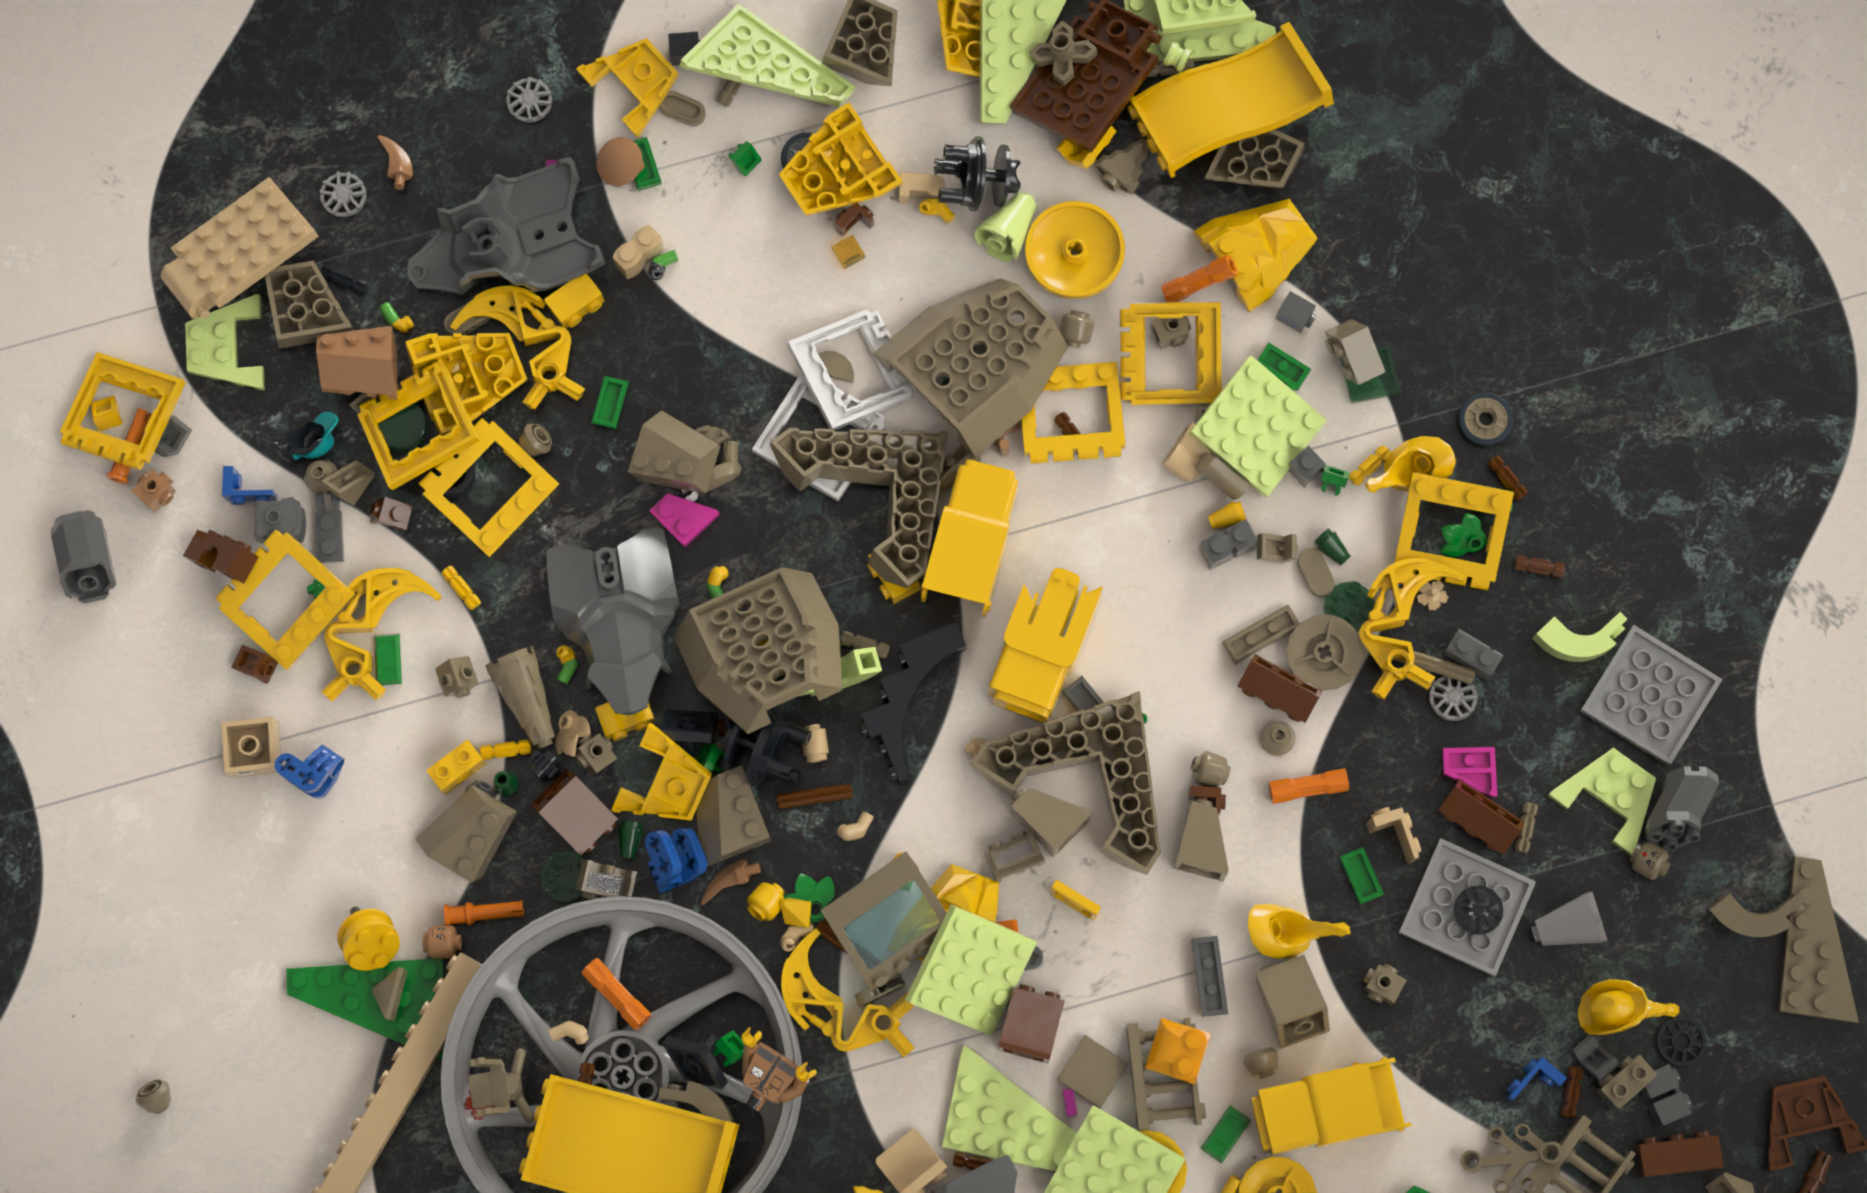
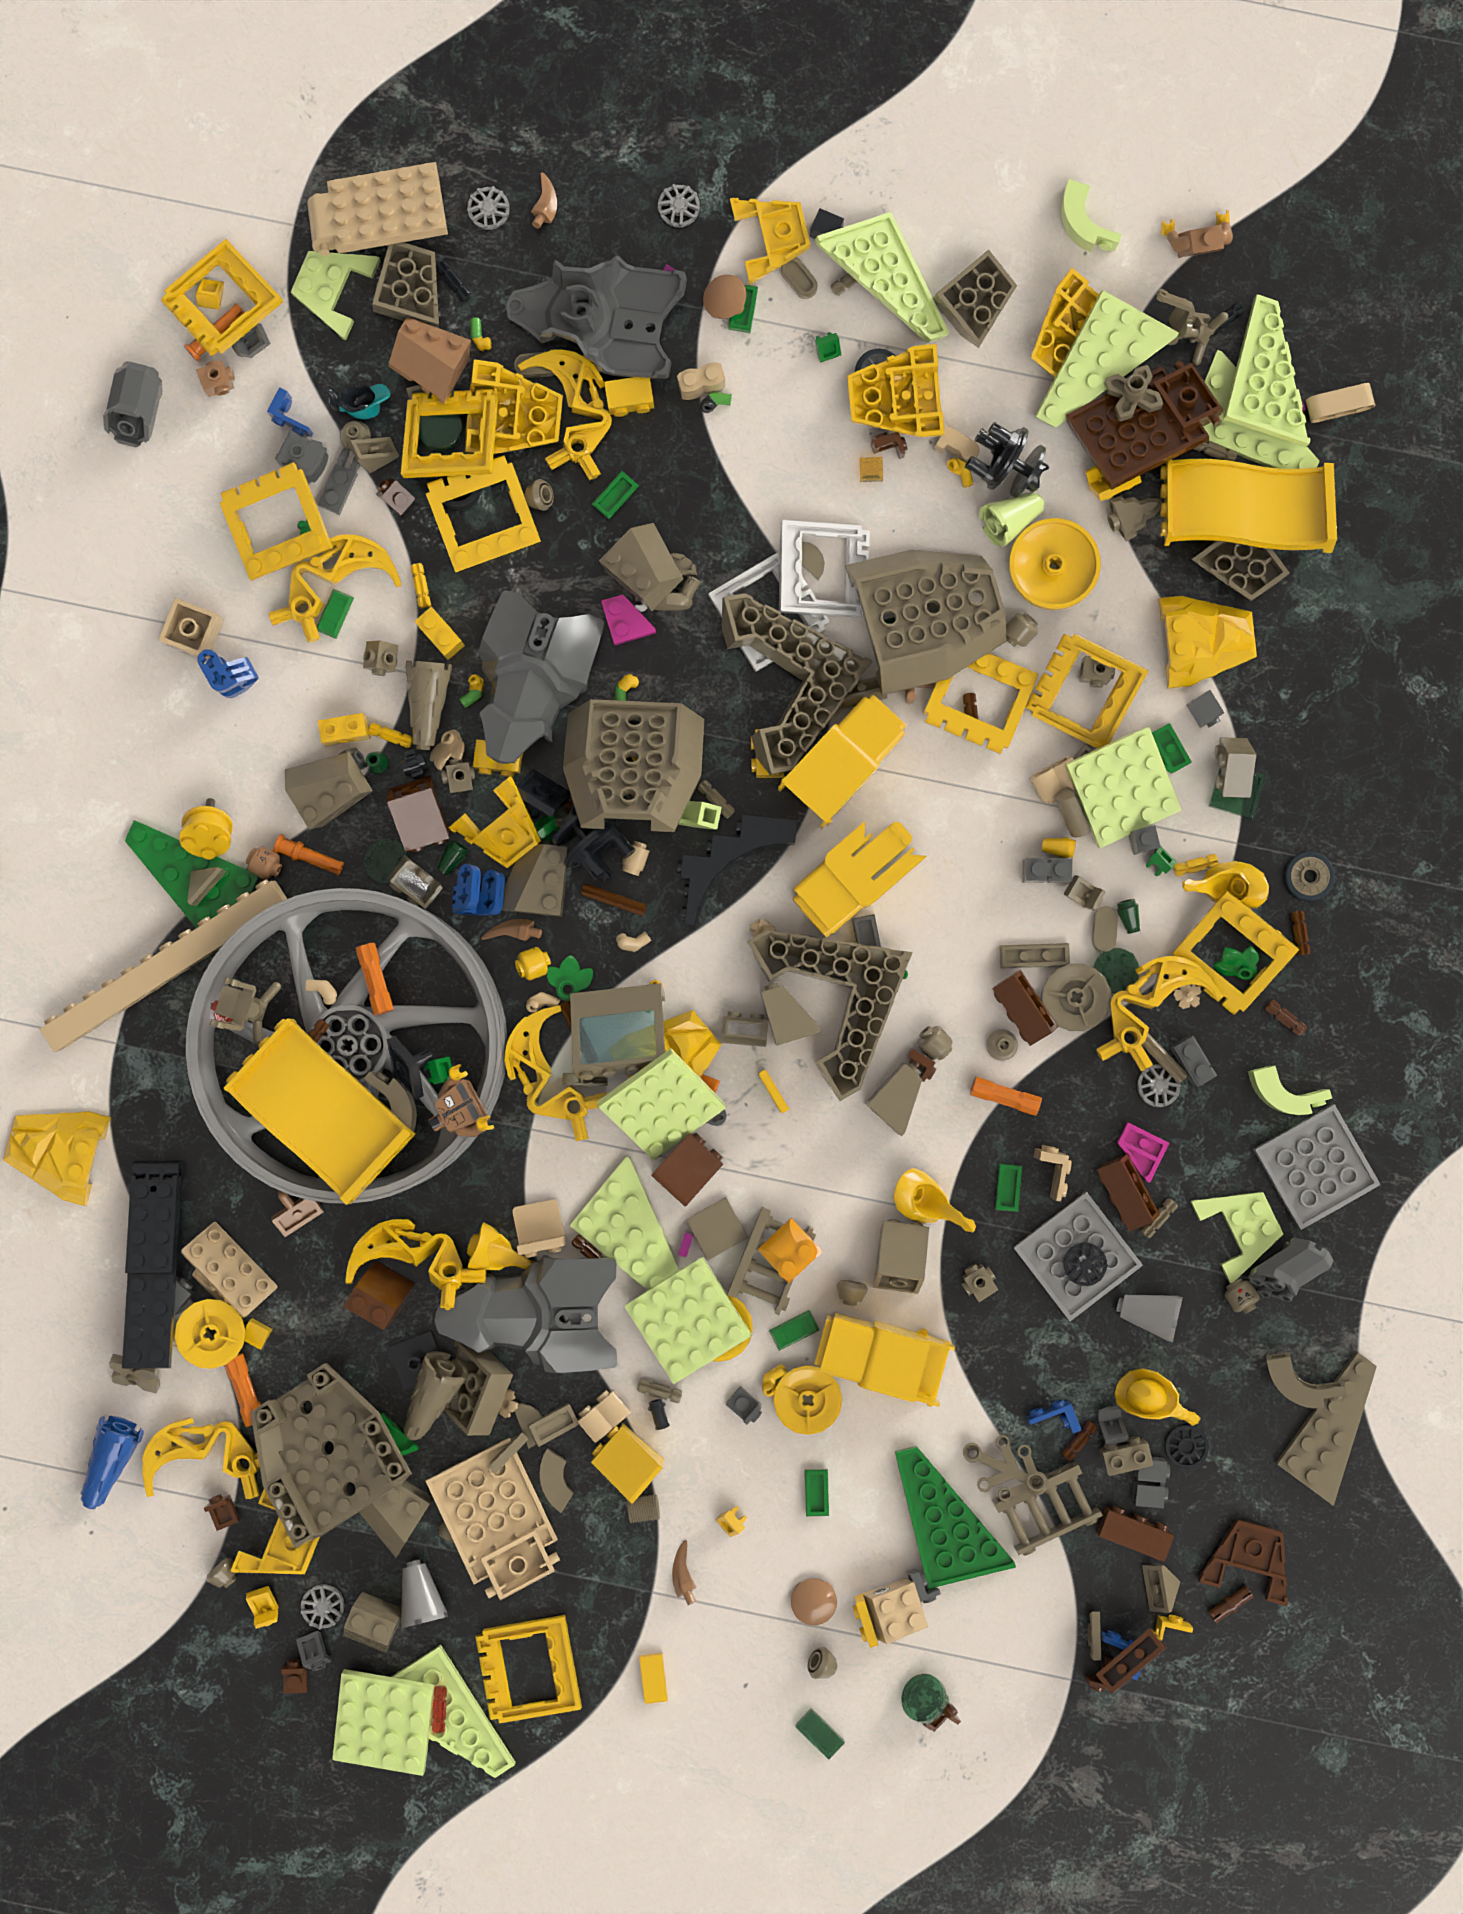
camera: 25 degrees right, 10 degrees up
(221, 554) = (241, 460): reddish brown arch -> none
(254, 664) = (227, 563): reddish brown bracket -> none
(504, 623) = (439, 633): none -> yellow brick
(796, 912) = (551, 984): yellow slope -> none
(1177, 57) = (1225, 445): yellowish green wheel -> none
(1209, 976) = (847, 1203): dark grey plate -> none
(1215, 272) = (1128, 641): orange axle -> none

